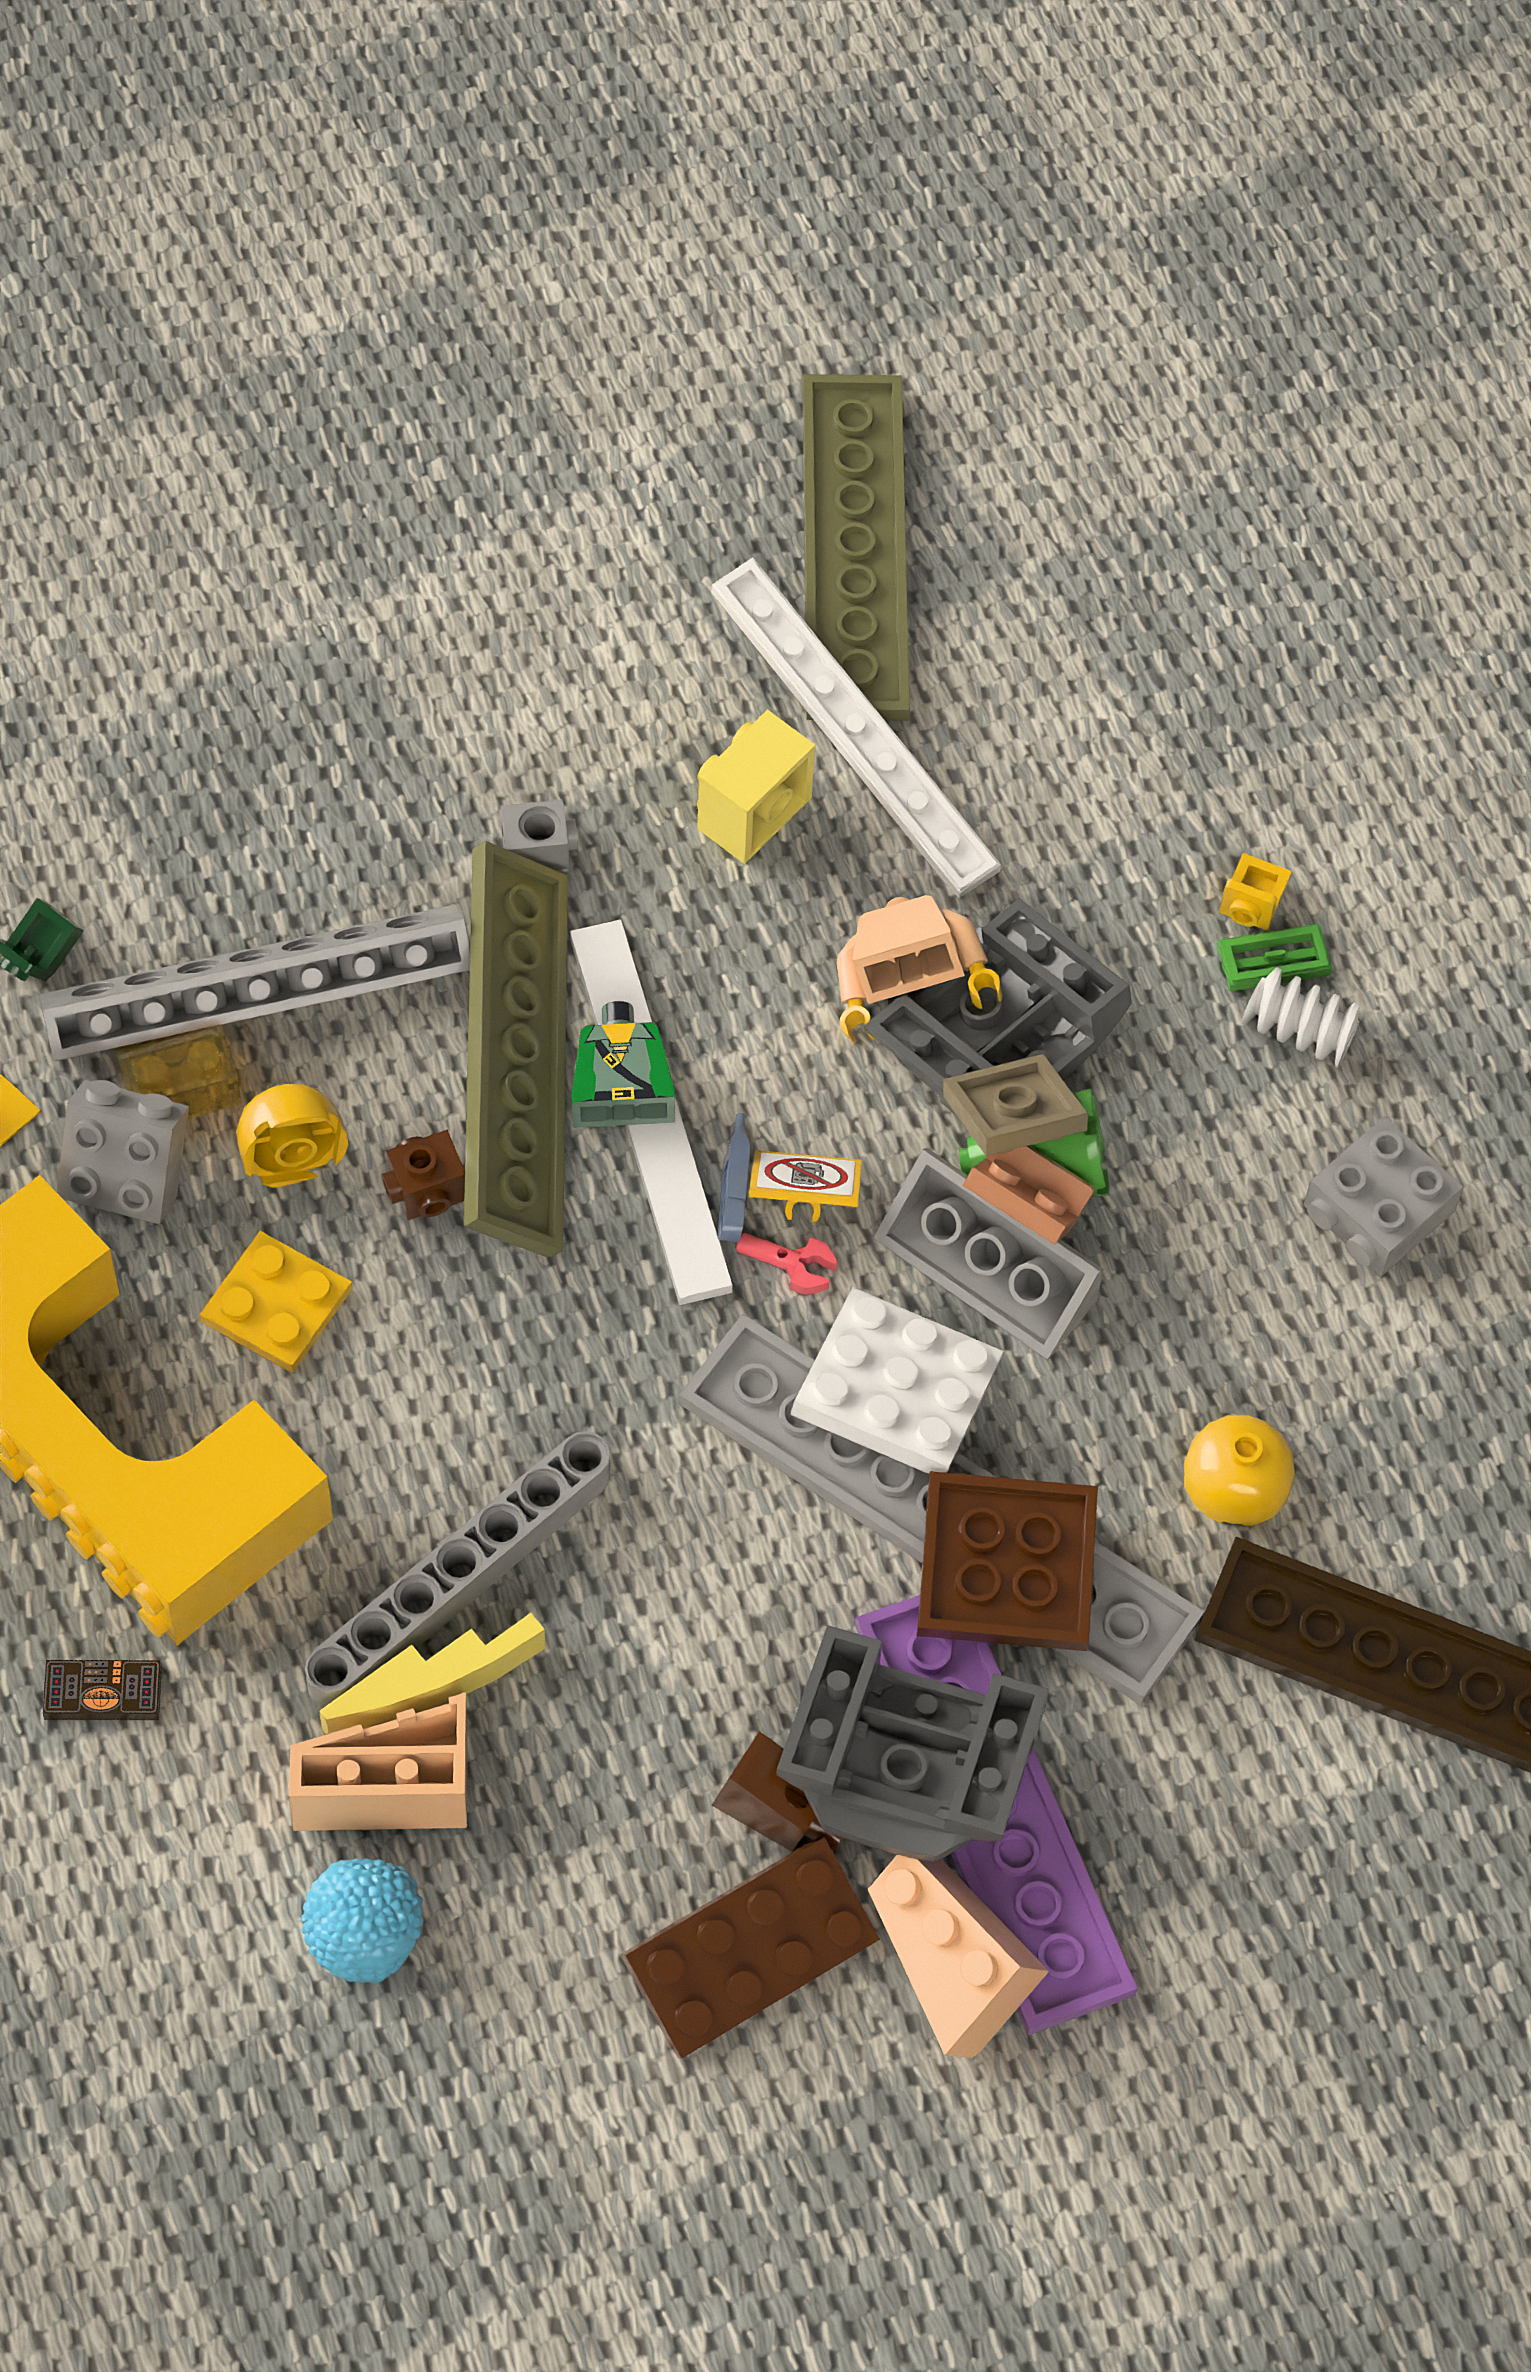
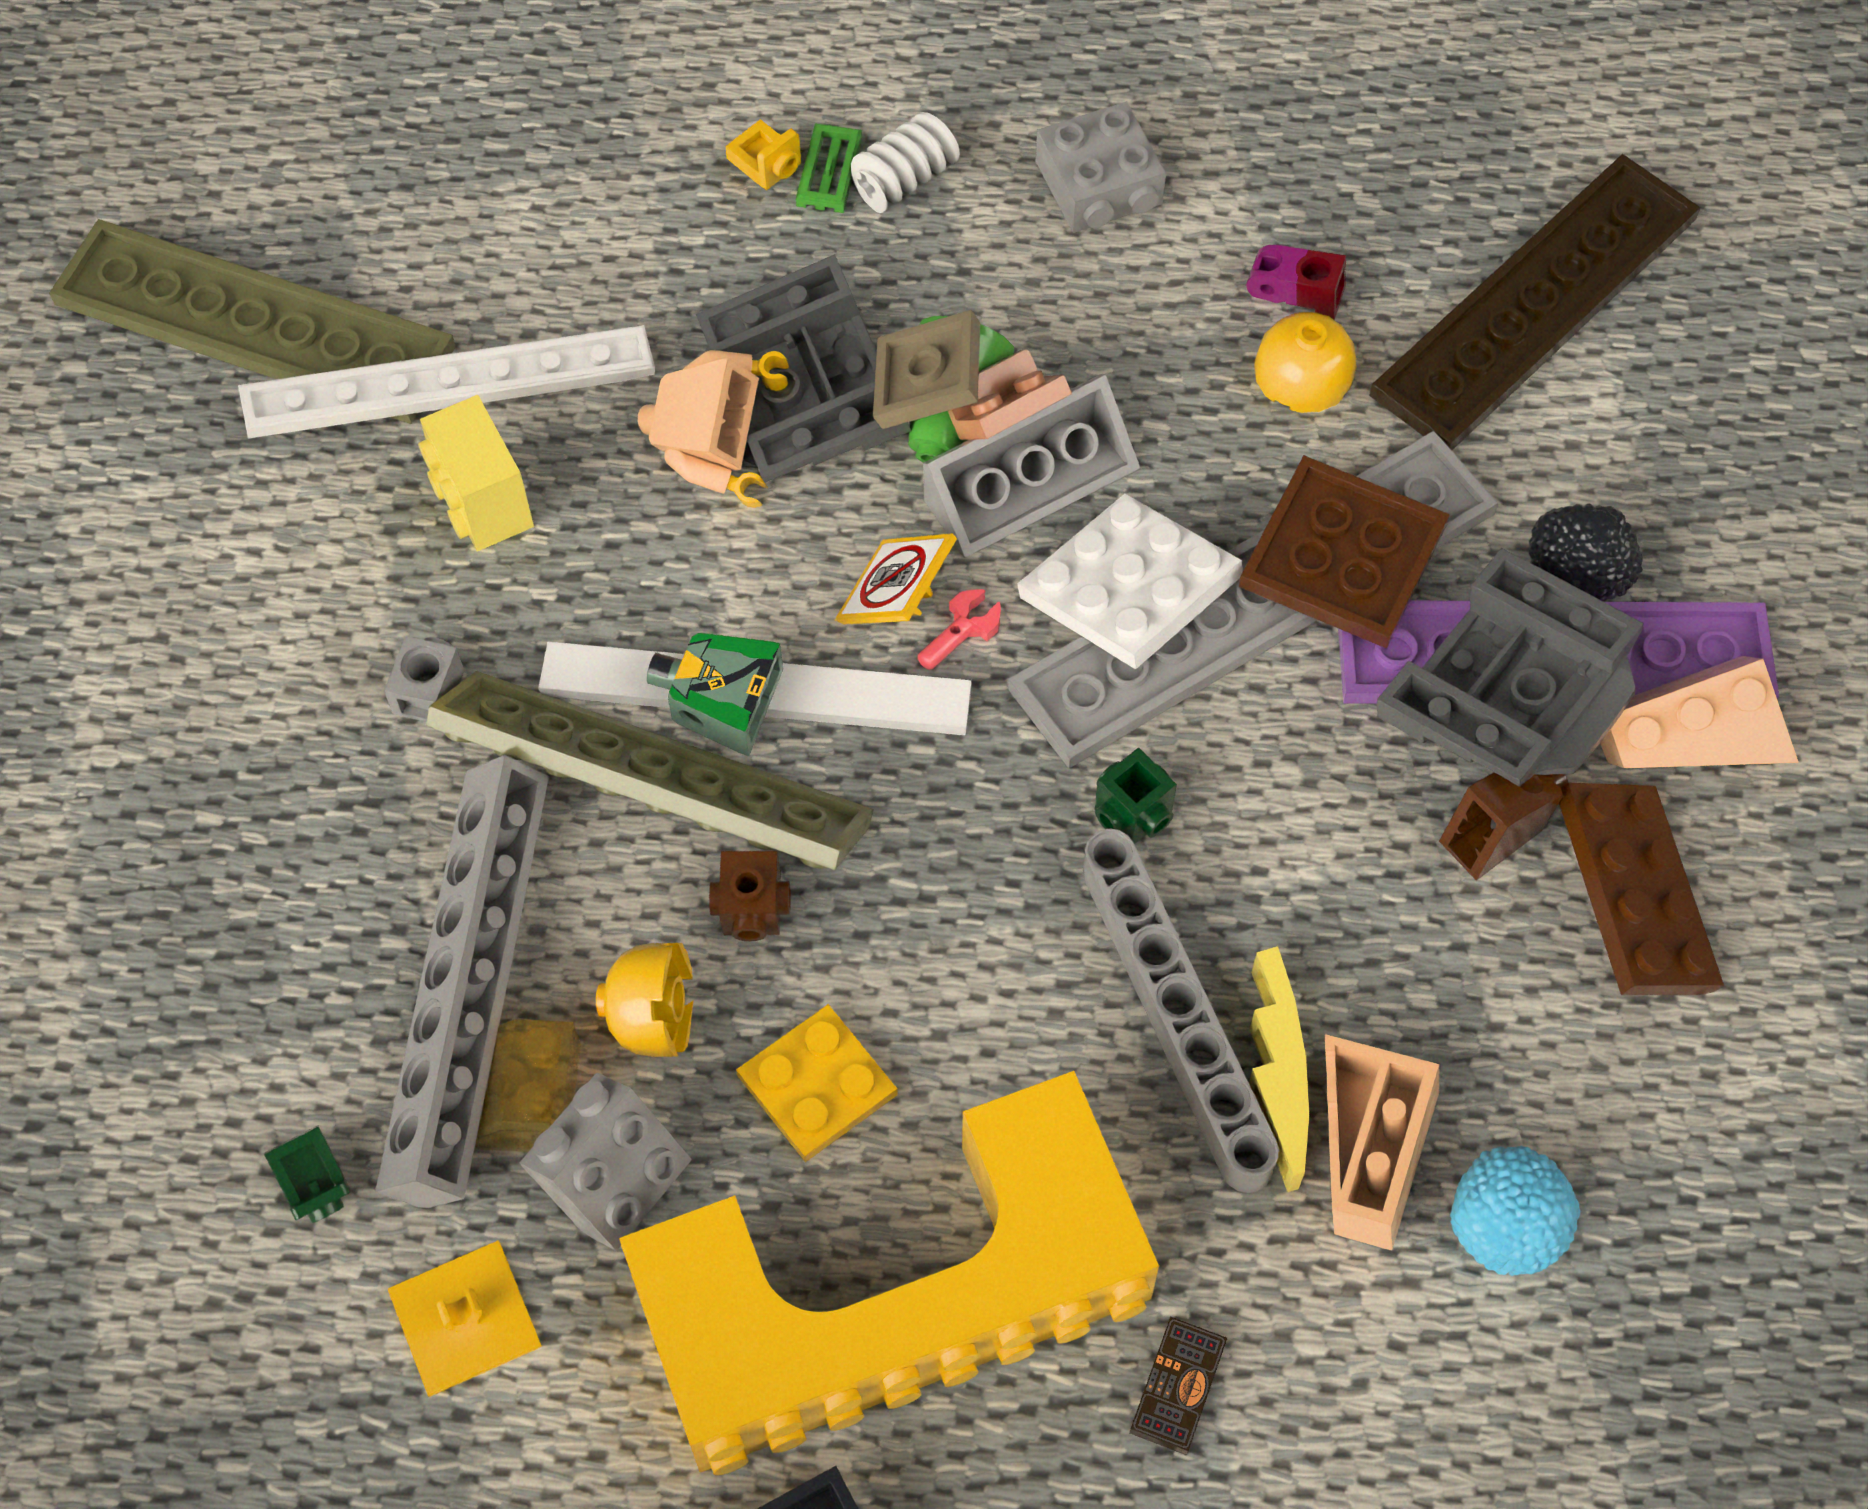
camera: 65 degrees left, 0 degrees up
(656, 1462) = (1135, 797): none -> dark green brick
(734, 1184) = (869, 643): sand blue piece -> none
(1101, 1787) = (1587, 549): none -> black hair
(1339, 1433) = (1299, 278): none -> leg

